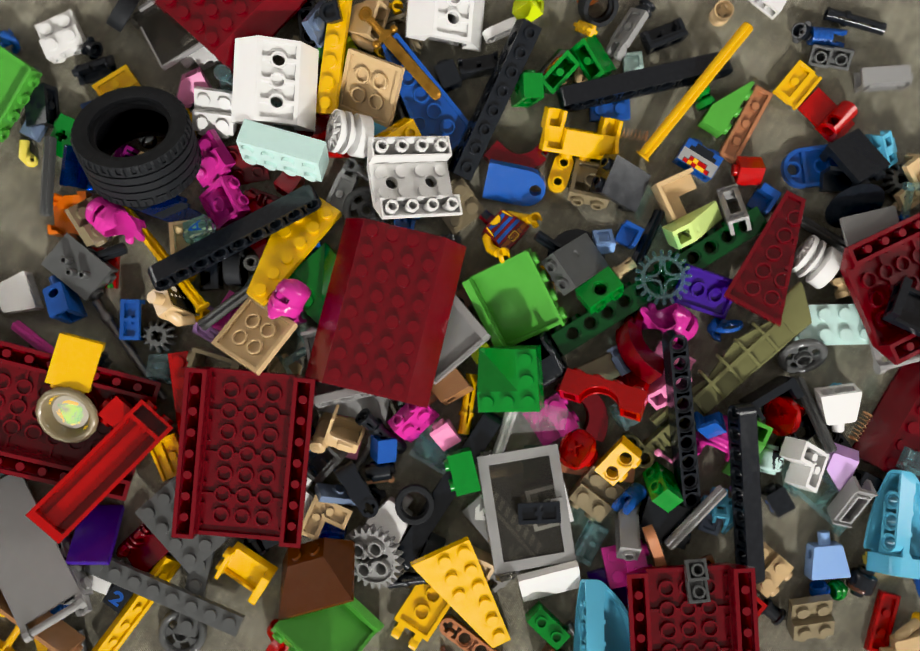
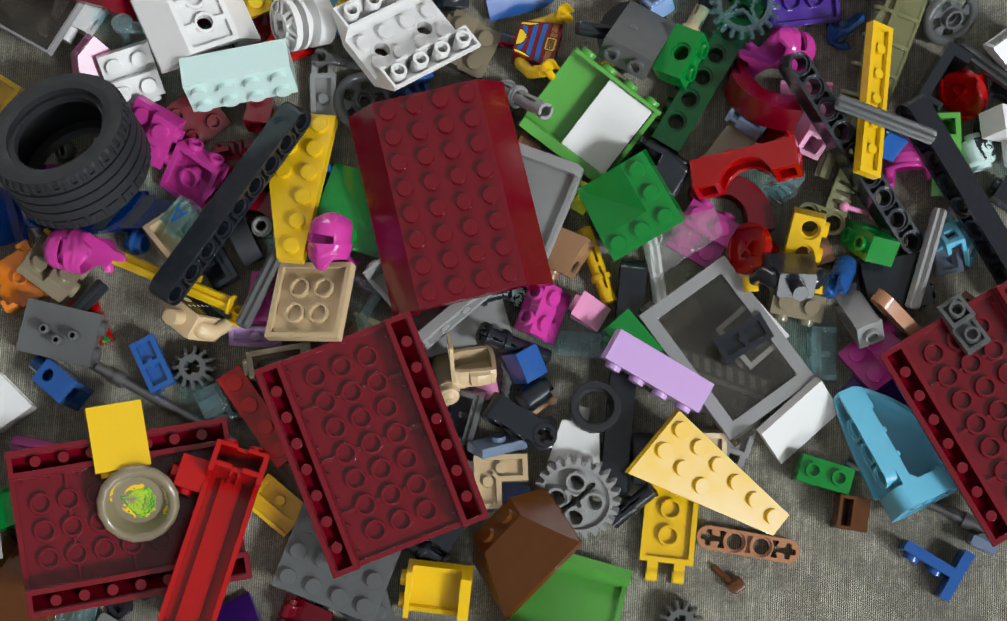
camera: 30 degrees left, 5 degrees down
(161, 230) = (136, 242): none -> blue plate
(467, 505) = (657, 371): none -> lavender brick
(473, 262) = (520, 98): none -> light grey pin
(522, 314) = (606, 126): none -> white tile
(592, 486) = (788, 276): none -> black torso
(717, 393) = (874, 92): none -> yellow plate
(718, 413) = (885, 119): none -> dark grey axle

